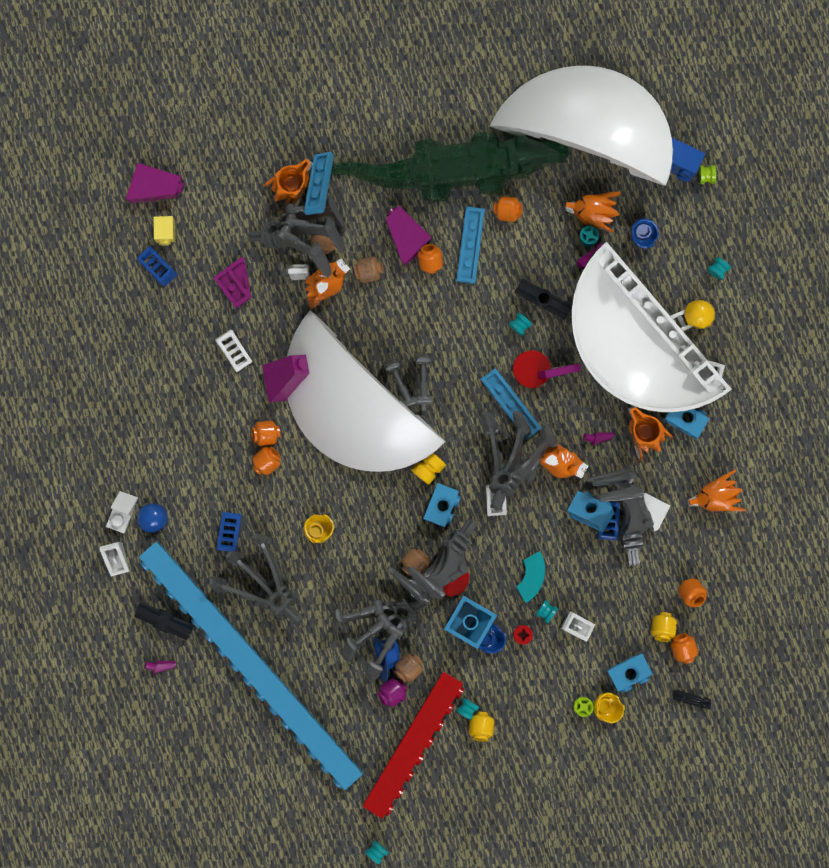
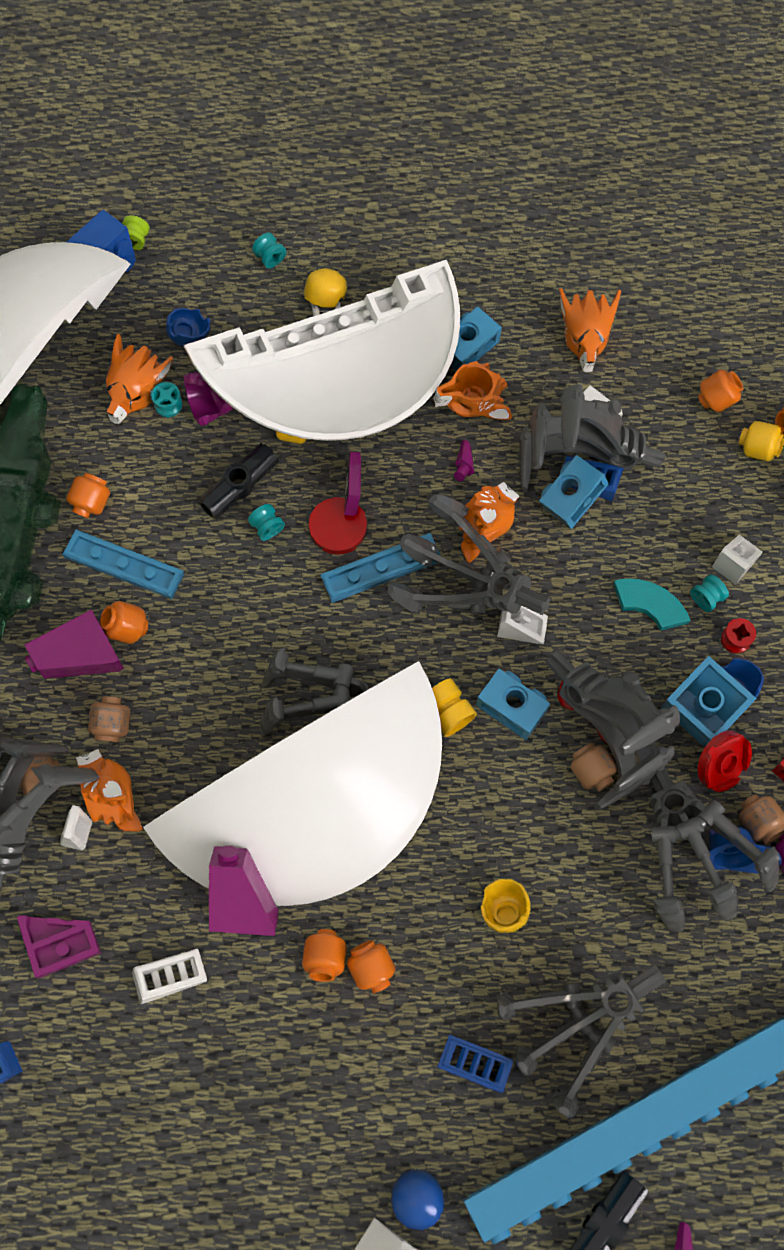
camera: 80 degrees left, 15 degrees down
(437, 638) = (724, 760): none -> red tile

